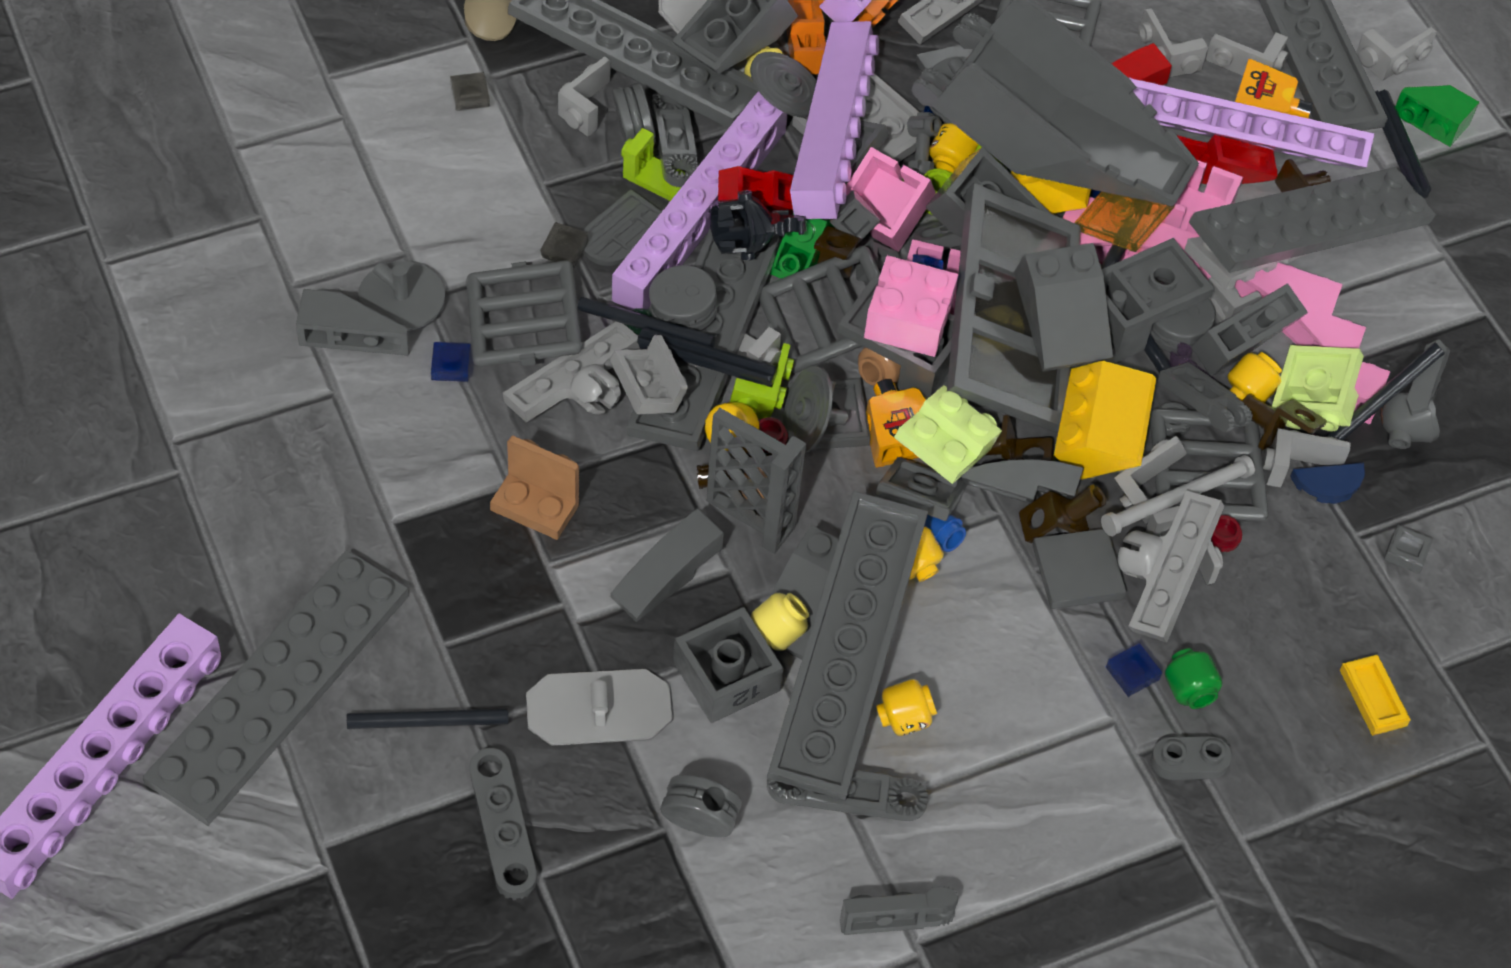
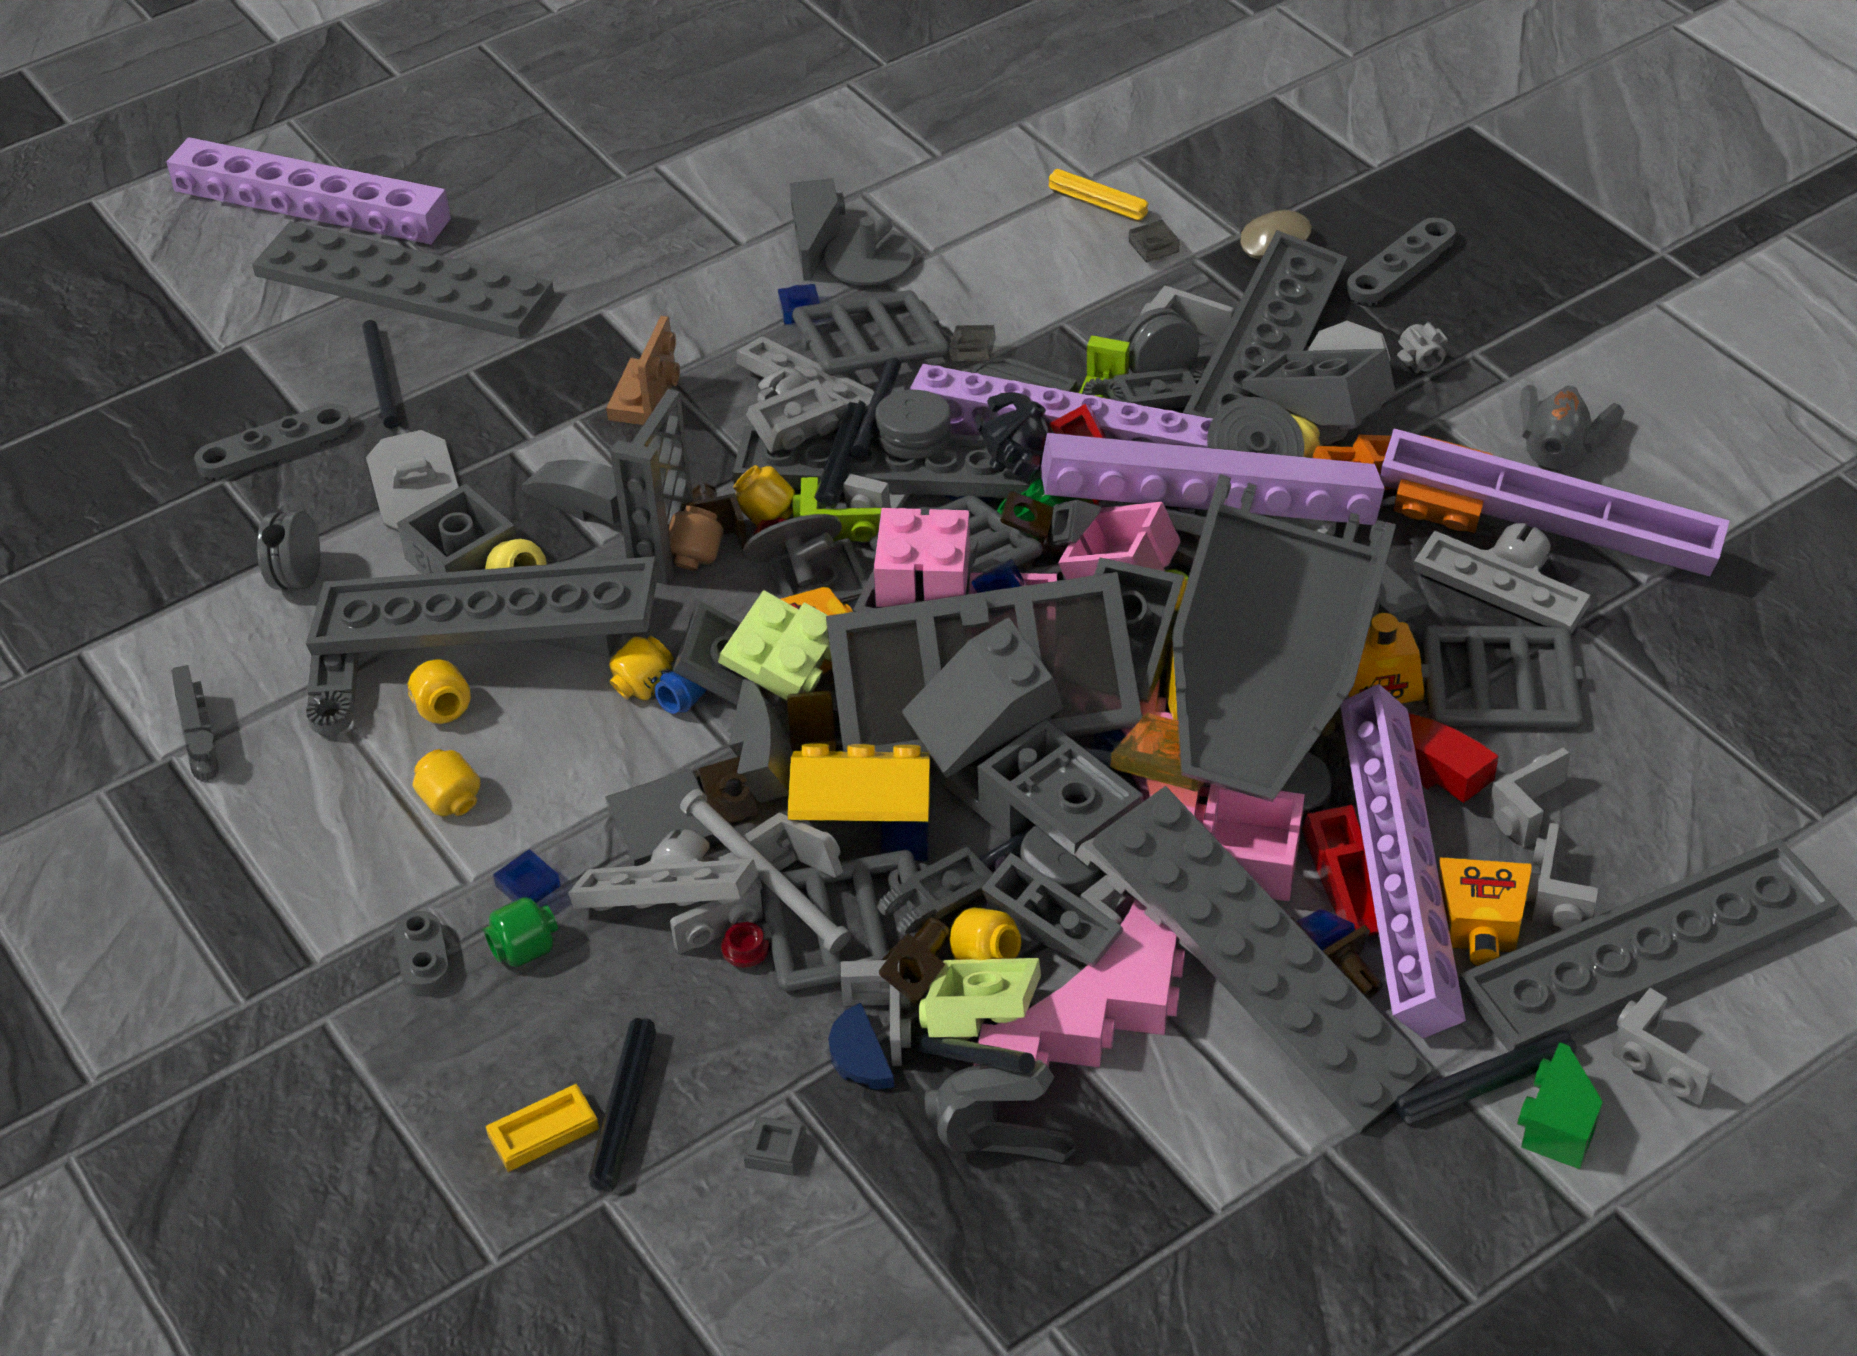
camera: 85 degrees right, 10 degrees down
(381, 114) = (1098, 194): none -> yellow axle
(1018, 713) = (446, 782): none -> yellow head
(1271, 184) = (1326, 927): none -> clear blue plate
(1362, 637) = (622, 1105): none -> black axle

